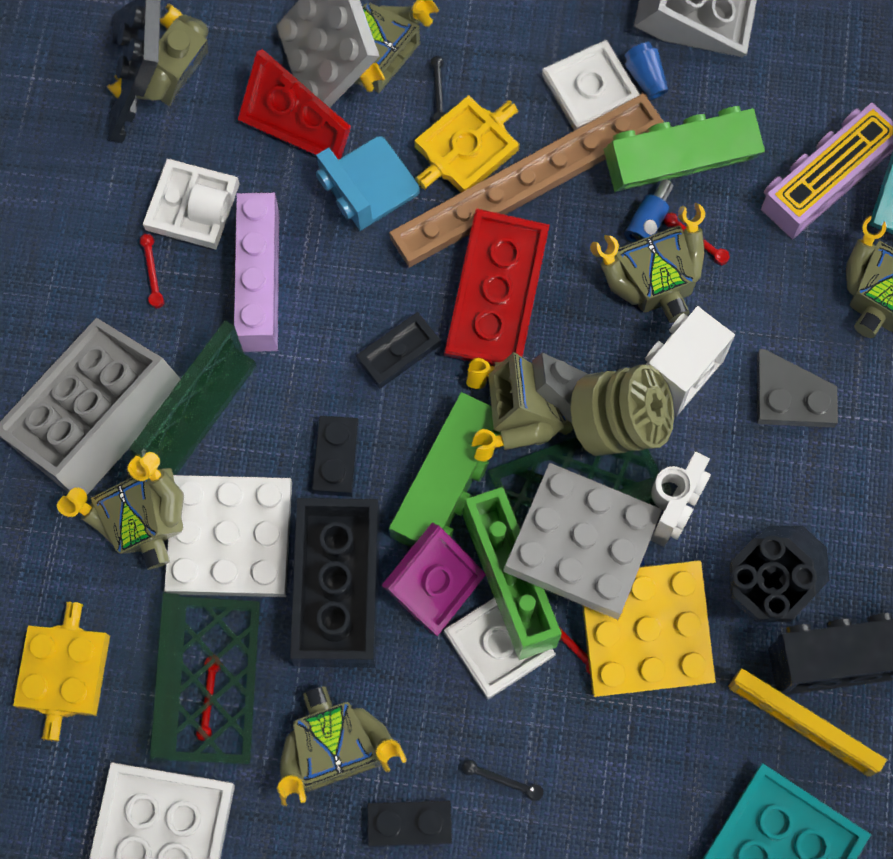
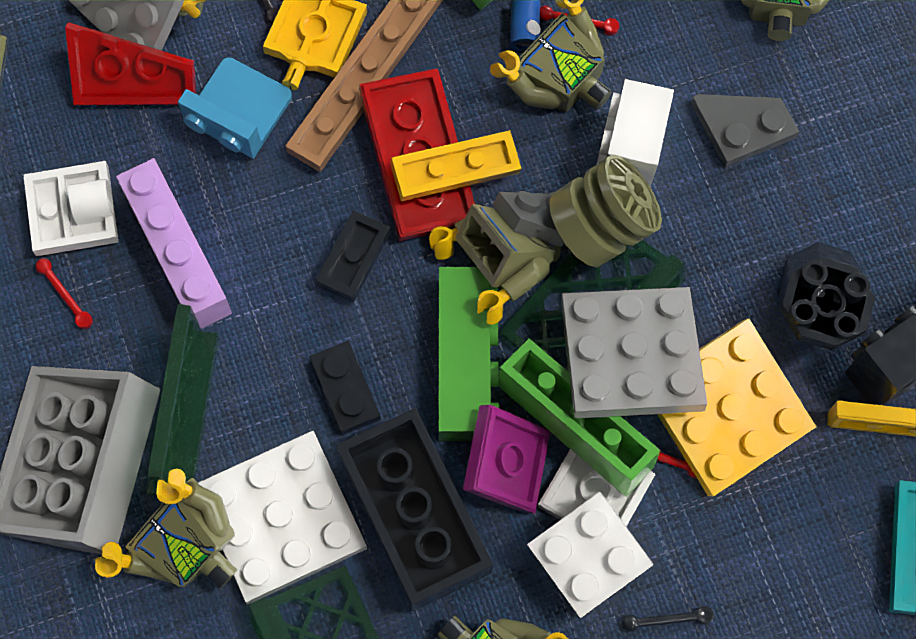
camera: 30 degrees left, 0 degrees up
(461, 691) = (590, 554): none -> white brick
(520, 313) = (455, 165): none -> yellow plate
(676, 512) = (699, 273): white plate -> none

